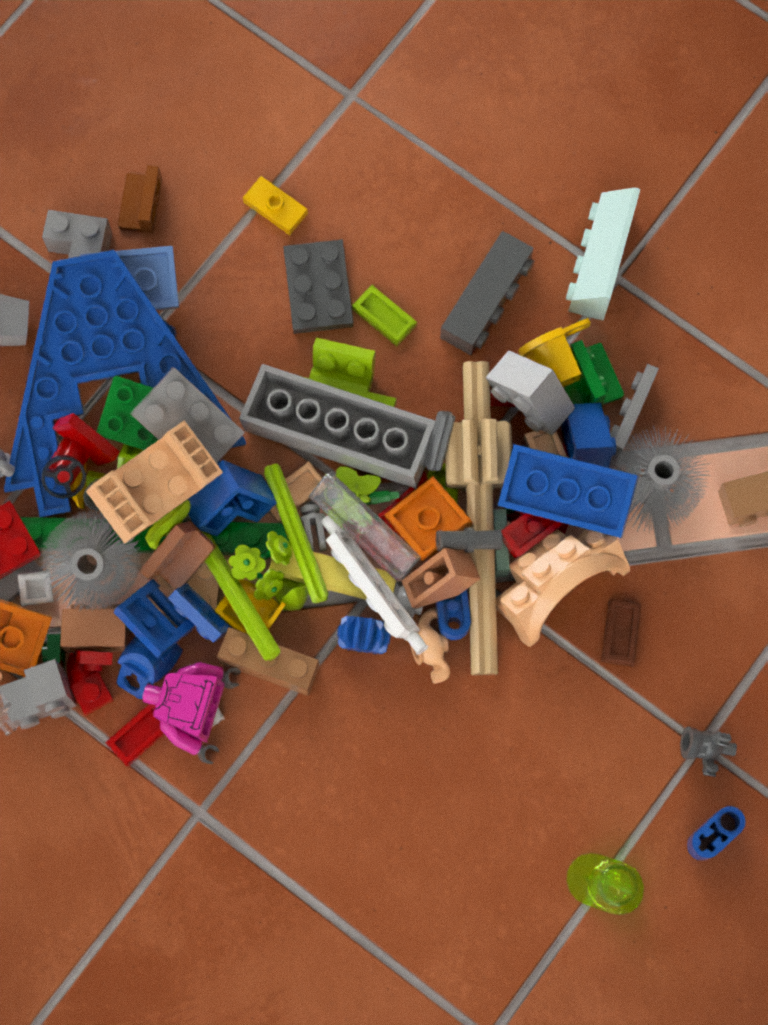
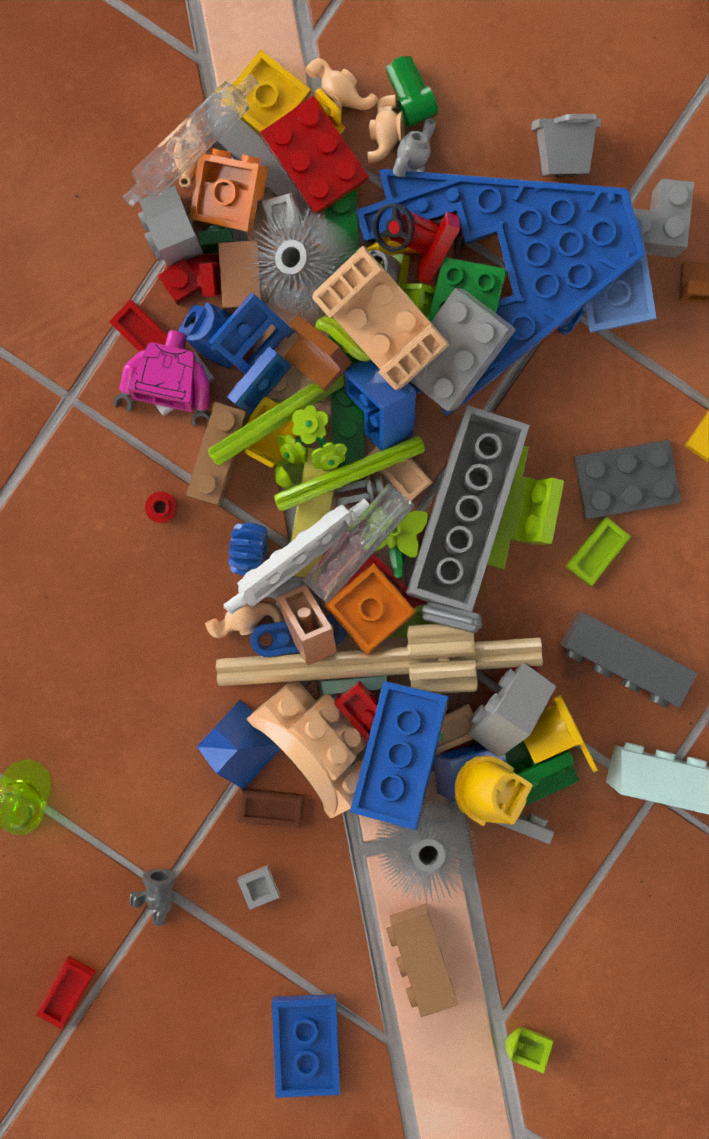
camera: 90 degrees right, 15 degrees up
(324, 730) = (168, 514): none -> red plate
(469, 540) = (346, 652): dark grey pin -> none
(557, 659) = (237, 748): none -> blue slope
(606, 412) = (490, 791): none -> yellow container
(698, 646) = (258, 887): none -> light grey plate
(716, 844) = (59, 907): blue beam -> none

